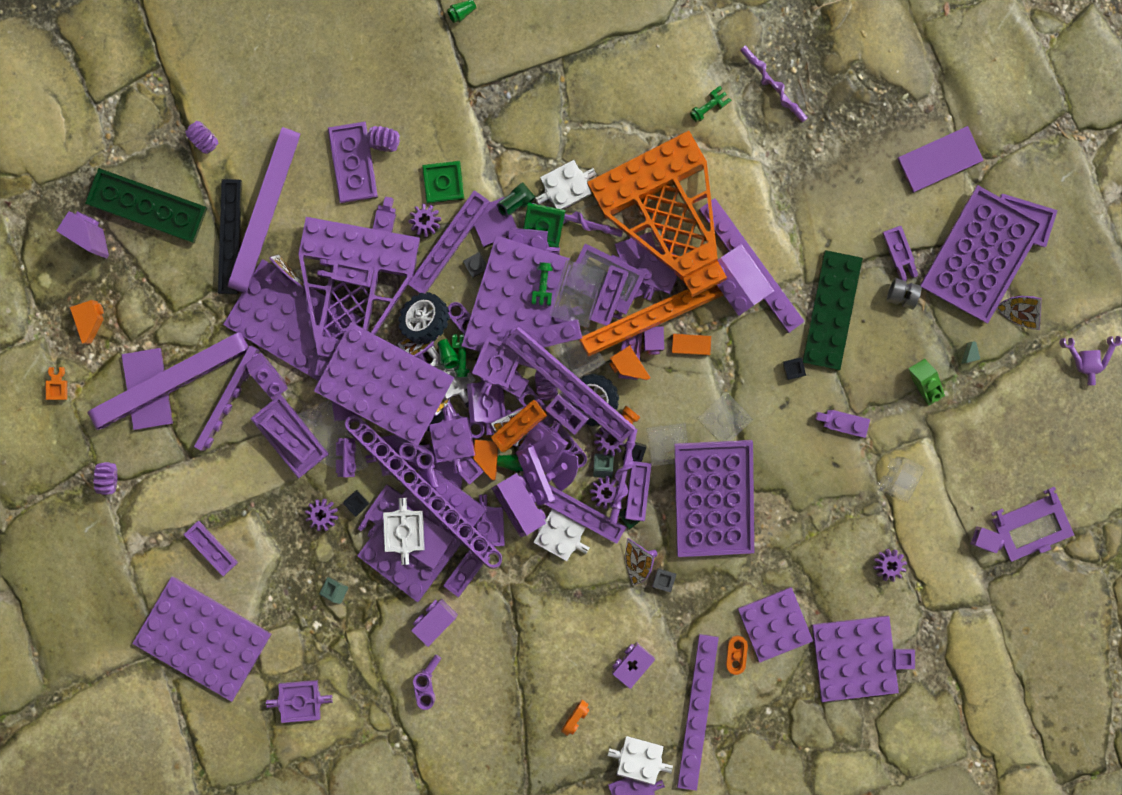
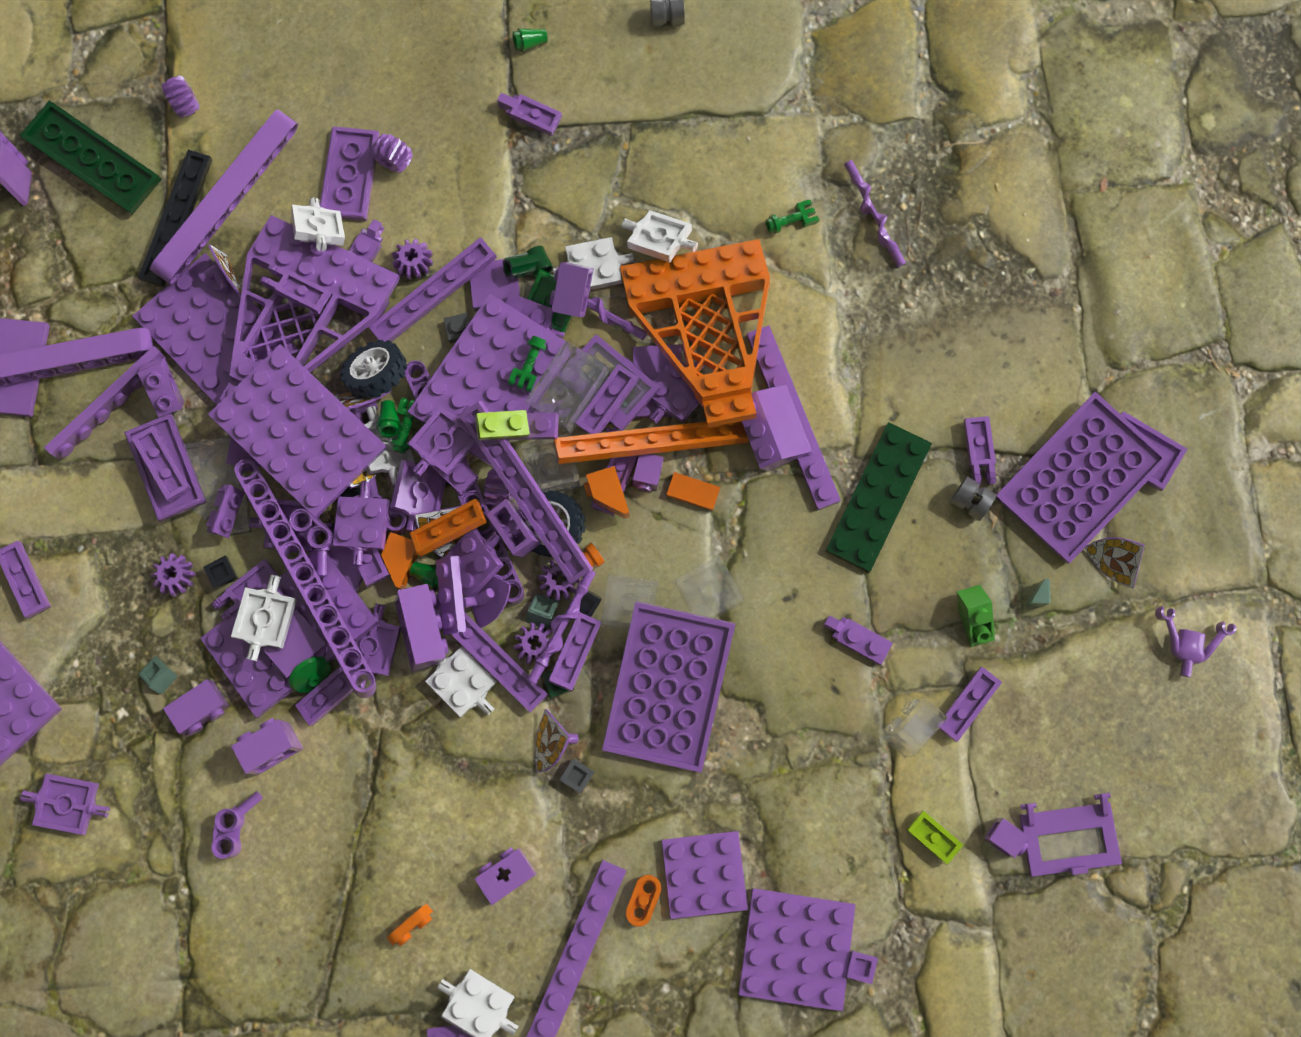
camera: 10 degrees right, 10 degrees down
(345, 215) = (317, 225): none -> white plate
(371, 607) = (196, 708): none -> medium lavender brick
(443, 182) = (449, 223): green tile -> none
(448, 561) = (309, 674): none -> green piece
(480, 73) = (530, 112): none -> medium lavender hinge
(540, 341) = (502, 425): none -> lime plate
(558, 215) = (571, 289): none -> medium lavender brick
(611, 149) = (659, 236): none -> white plate
(794, 368) = (813, 554): black plate -> none
(897, 566) = (871, 846): medium lavender gear -> none
(934, 553) = (934, 837): none -> lime plate
(937, 448) = (969, 703): none -> medium lavender plate
(940, 159) = (1055, 353): medium lavender tile -> none

